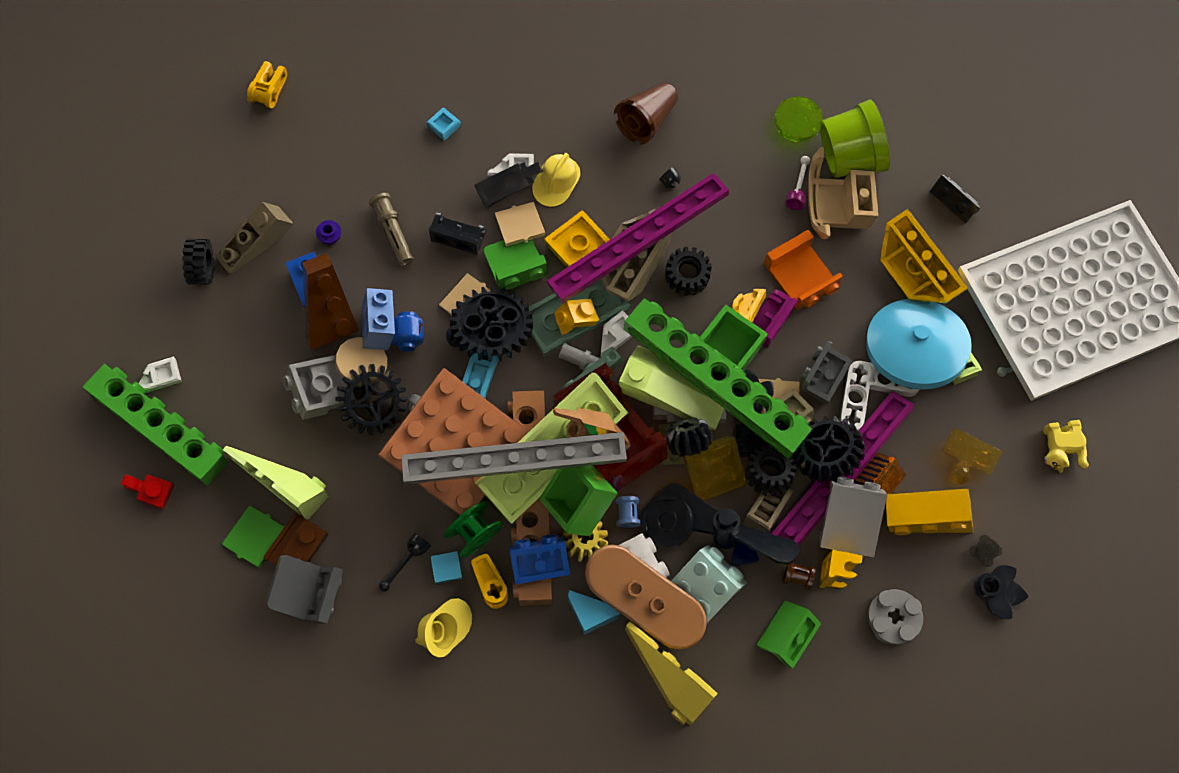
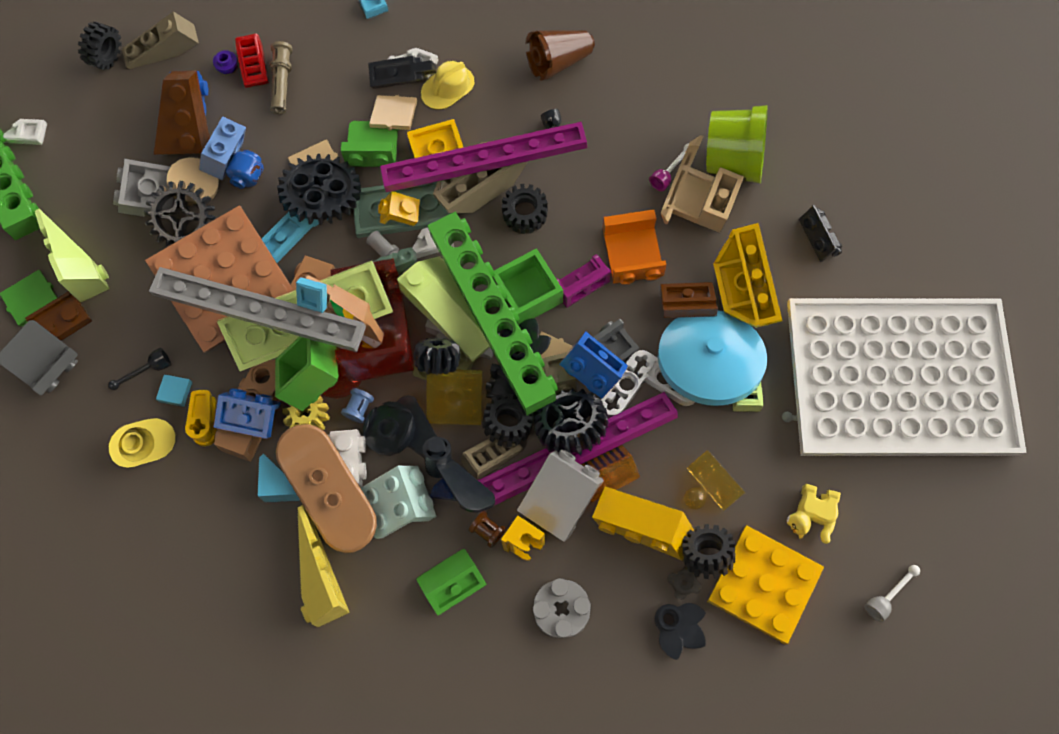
camera: 30 degrees right, 0 degrees up
(345, 210) = (247, 46): none -> red slope
(456, 234) = (333, 101): black hinge -> none
(473, 529) = (204, 355): green piece -> none
(566, 425) = (311, 294): none -> medium azure tile
(749, 304) = (564, 260): yellow plate -> none
(798, 118) = (696, 105): clear neon green tile -> none
(827, 391) = (593, 365): none -> blue brick
(873, 300) = (688, 300): none -> reddish brown plate
(998, 526) = (713, 563): none -> black tyre
(1052, 523) = (766, 585): none -> yellow plate
(1152, 503) = (880, 607): none -> light grey hinge

